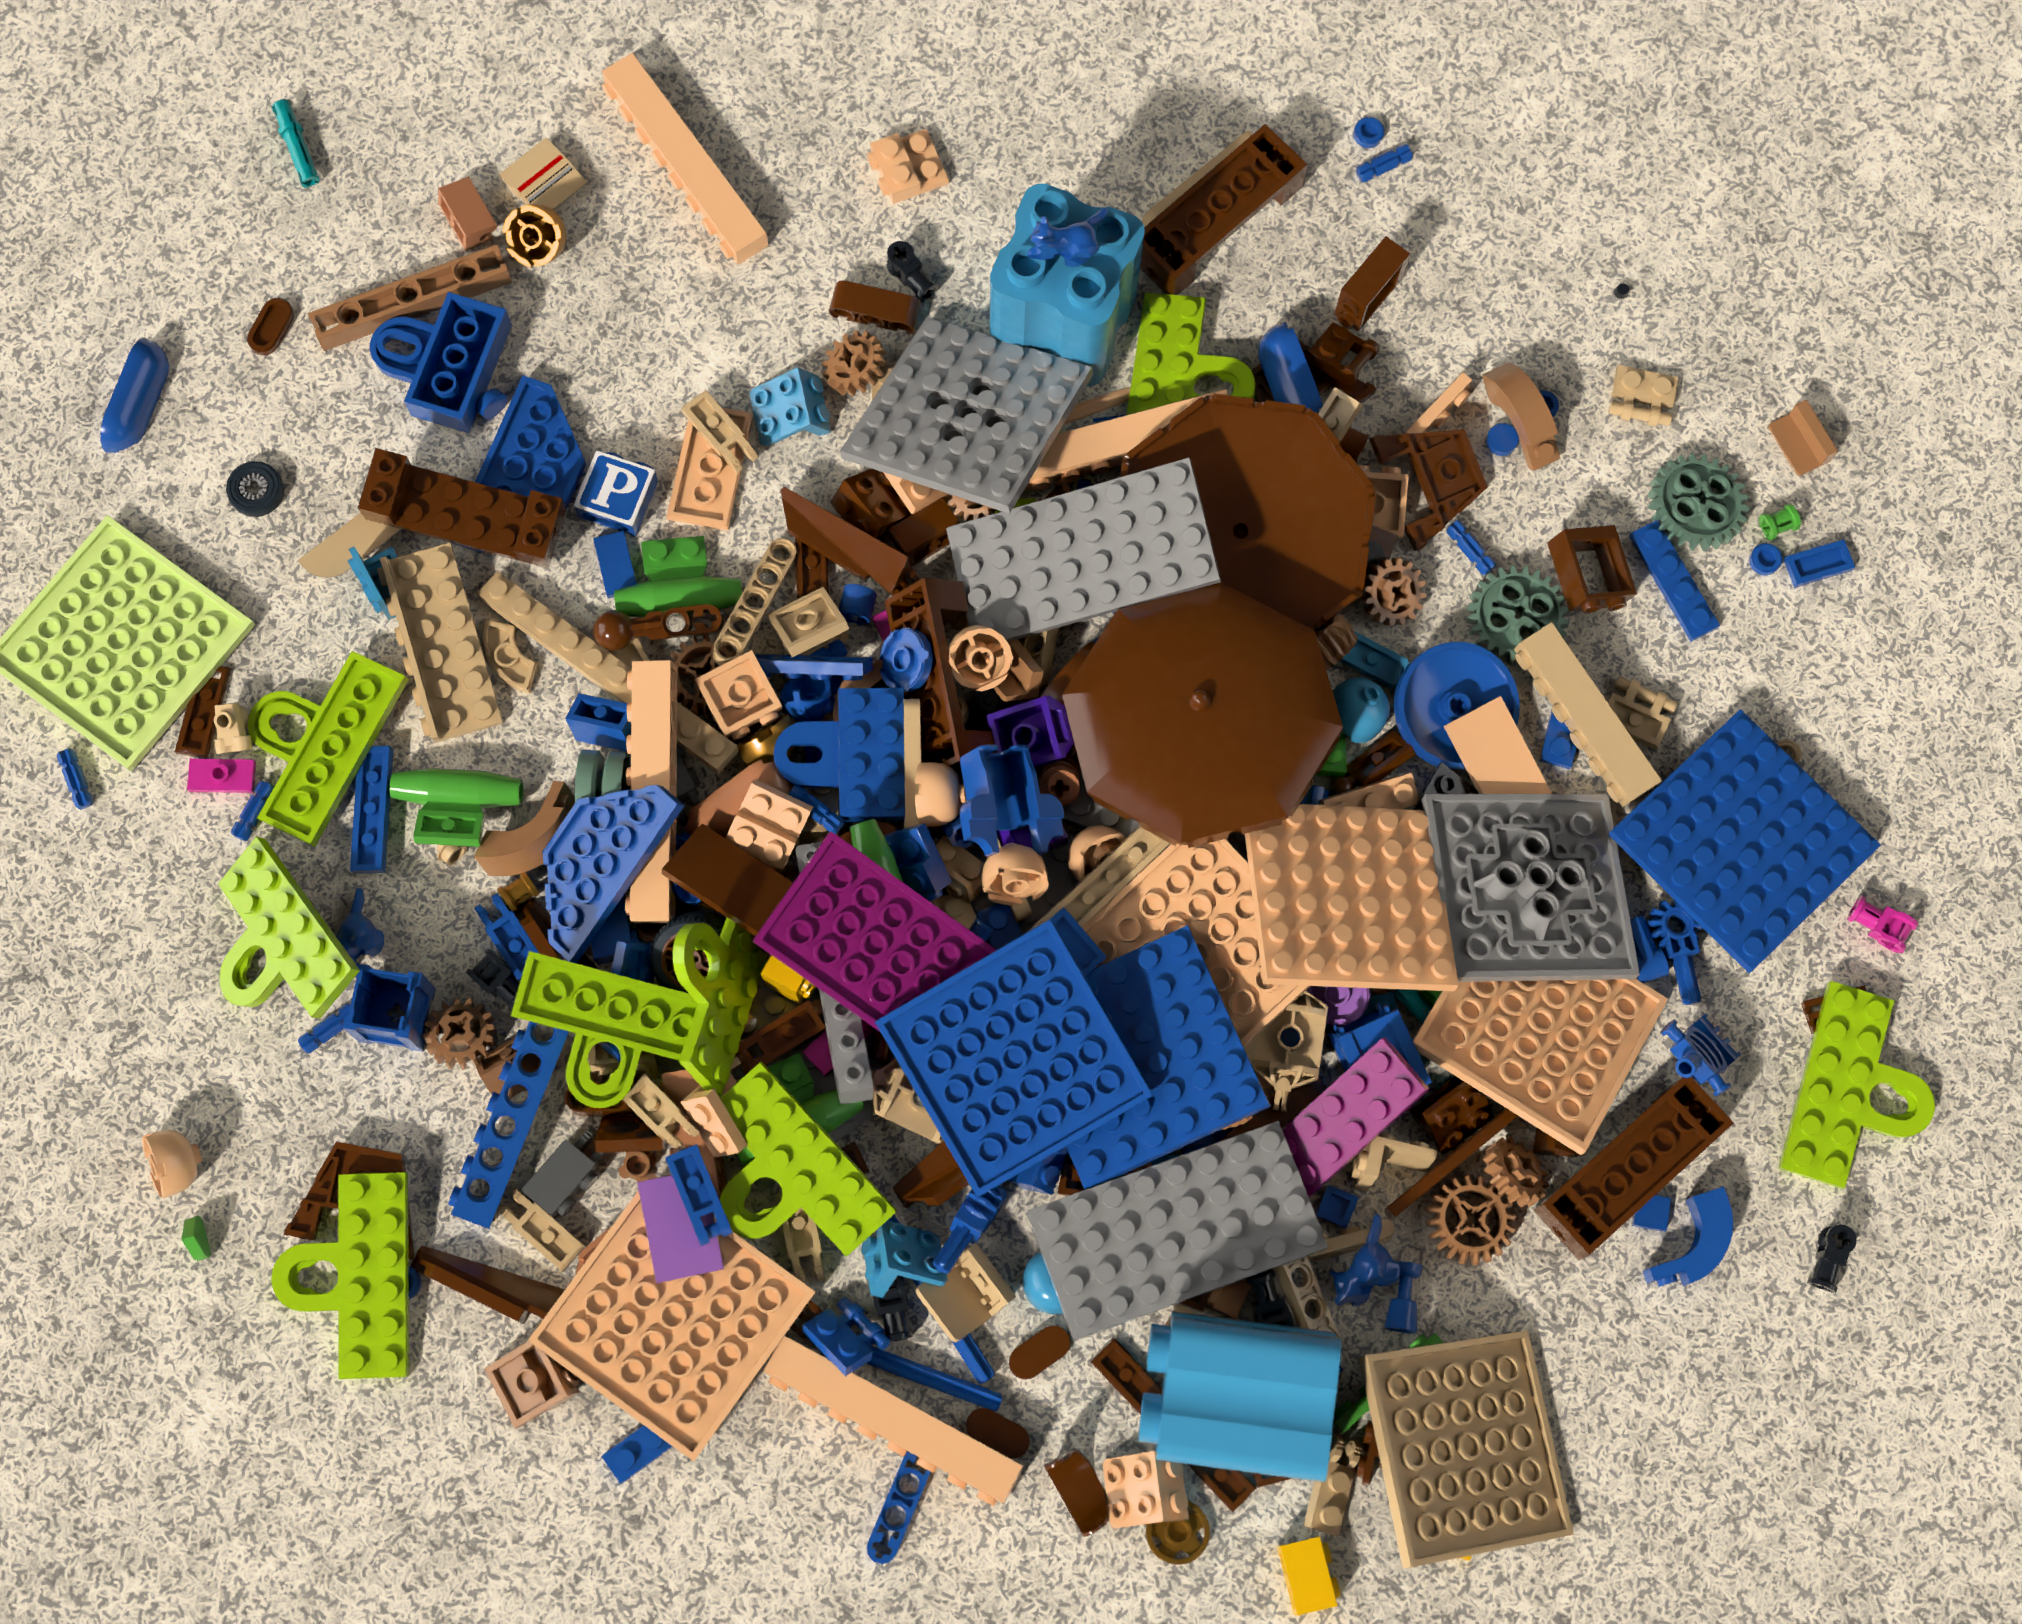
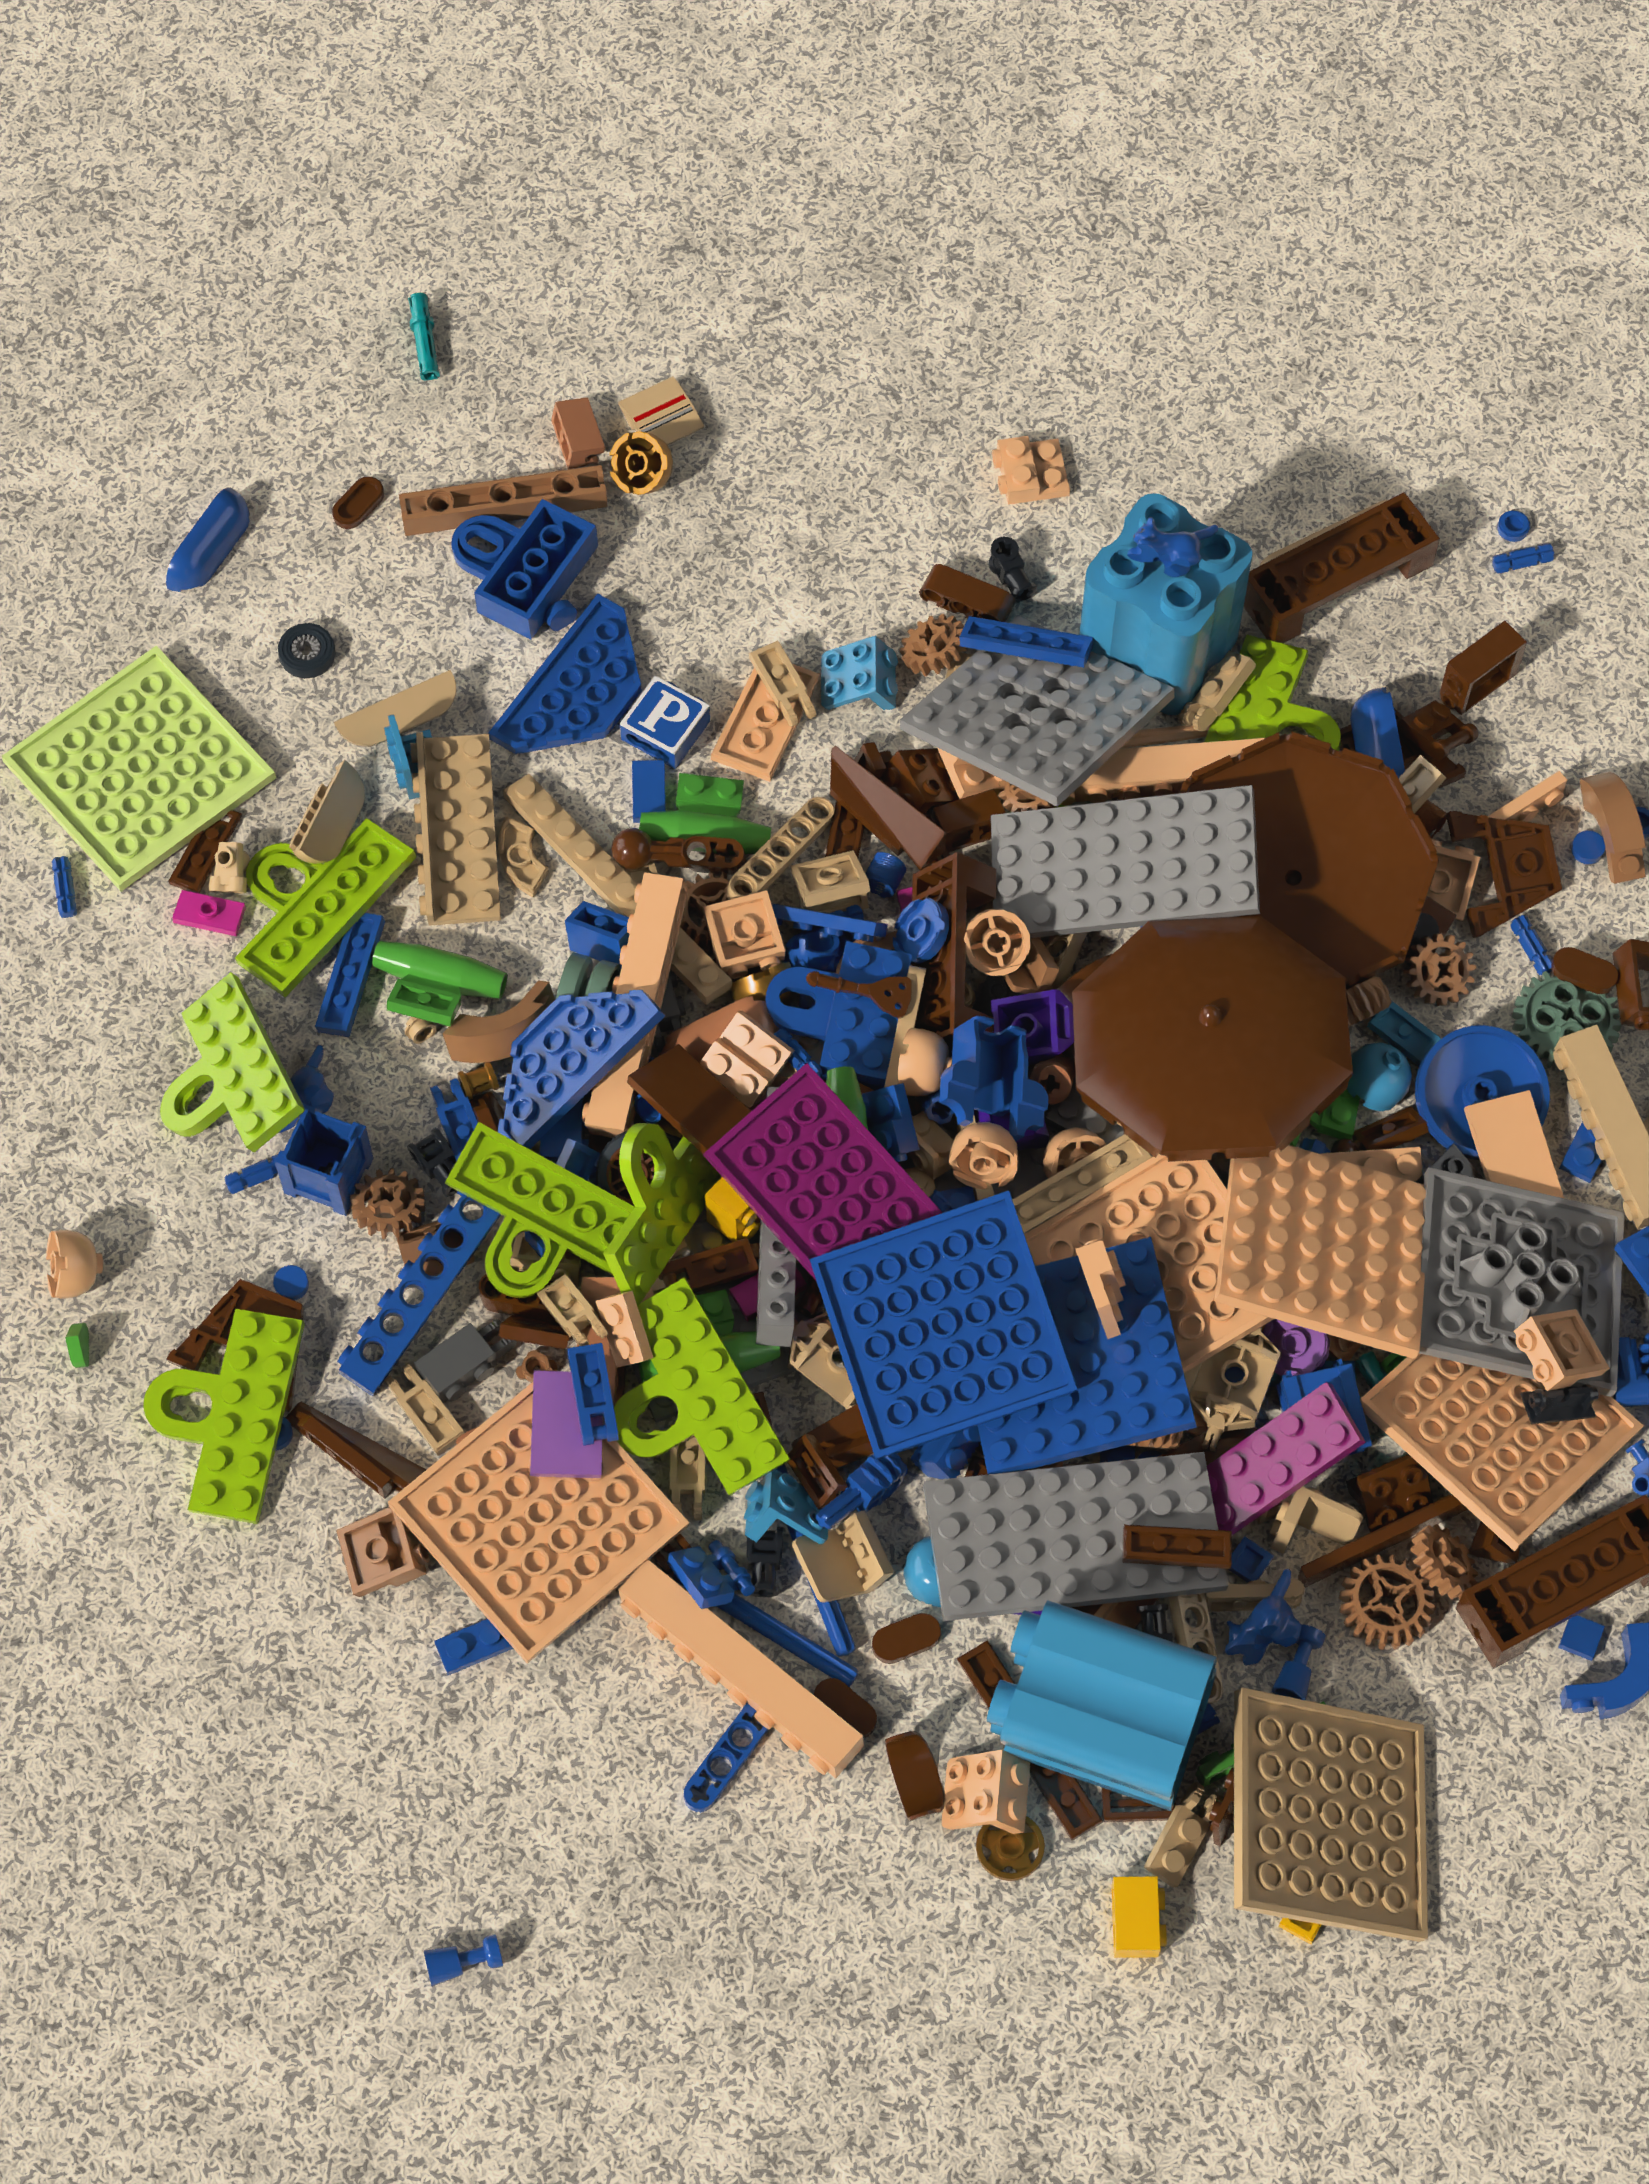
camera: 15 degrees right, 10 degrees down
(249, 814) = (227, 955): blue axle -> none
(315, 657) = (329, 817): none -> tan brick
(385, 1131) = (291, 1282): none -> blue tile
(461, 510) = (507, 706): reddish brown plate -> none
(684, 158) = (807, 422): light nougat brick -> none
(821, 493) = (872, 759): none -> reddish brown tile
(875, 734) = (874, 991): none -> reddish brown piece
(926, 1211) = (818, 1467): none -> reddish brown tile
(942, 347) = (1026, 641): none -> blue plate
(1078, 942) = (1036, 1233): blue tile -> none
(1130, 356) = (1217, 691): none -> tan hinge
(1155, 986) = (1104, 1282): none -> light nougat plate
(1274, 1223) = (1177, 1546): none -> reddish brown tile
(1526, 566) = (1584, 970): none -> reddish brown tile
(1584, 950) = (1560, 1349): none -> light nougat plate
(1591, 999) = (1560, 1404): none -> black hinge

